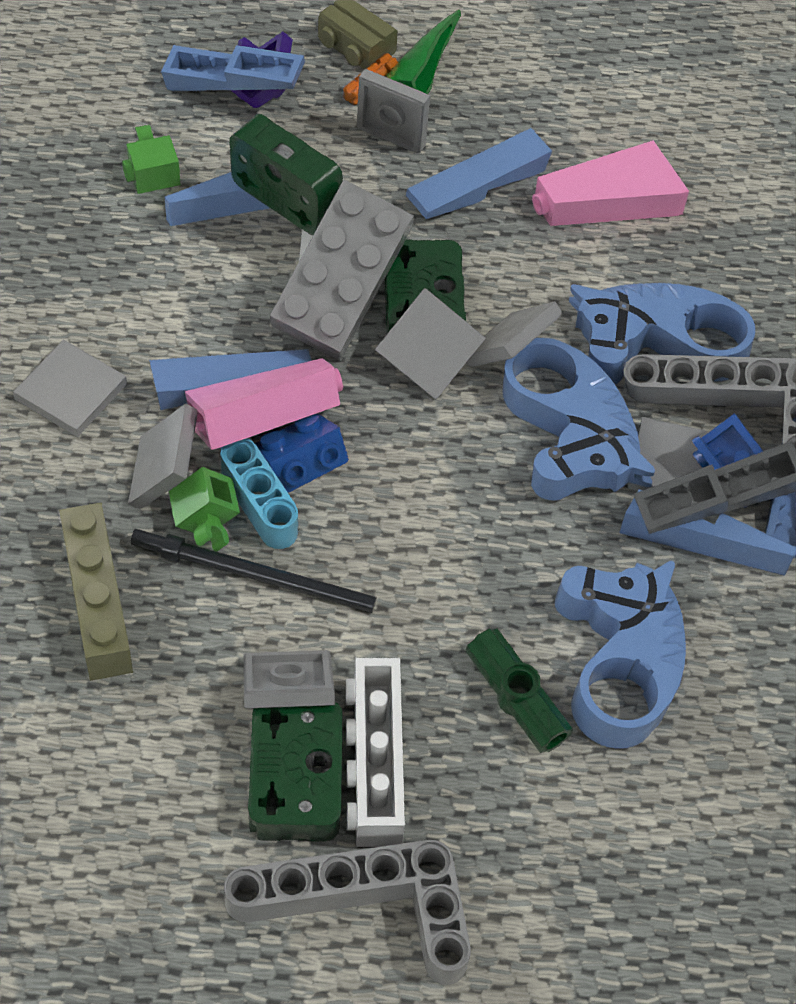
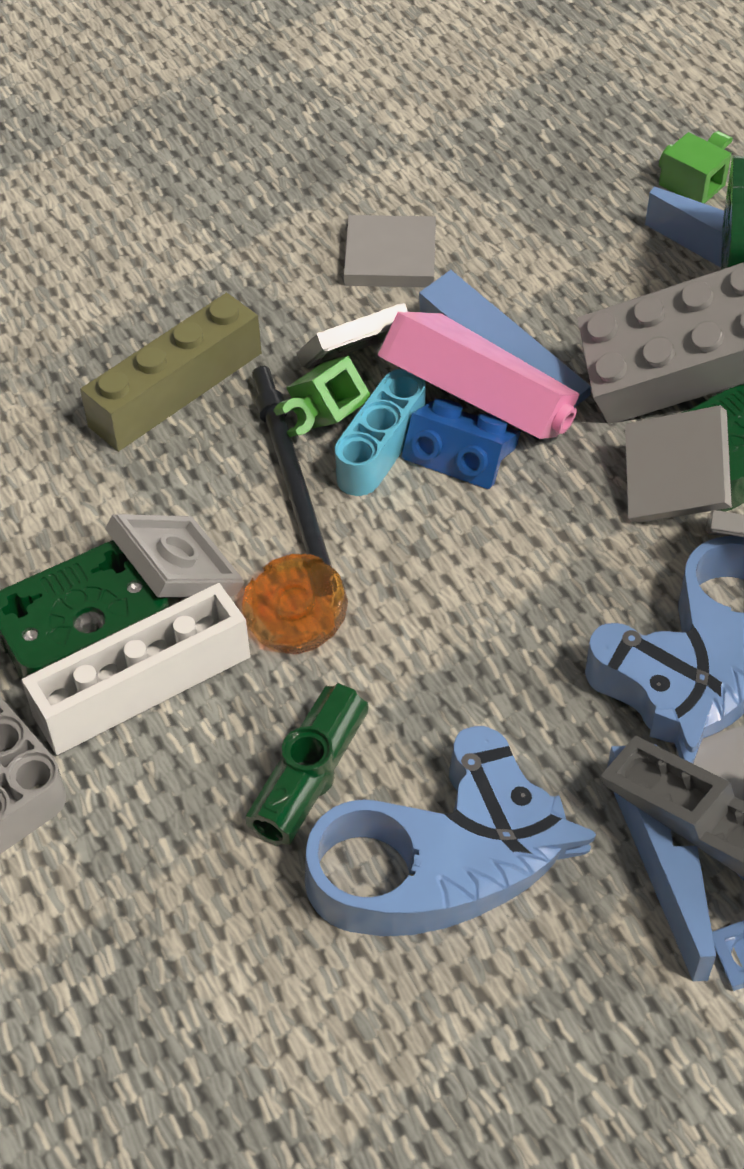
camera: 65 degrees right, 5 degrees down
(374, 625) = (295, 604): none -> clear orange tile

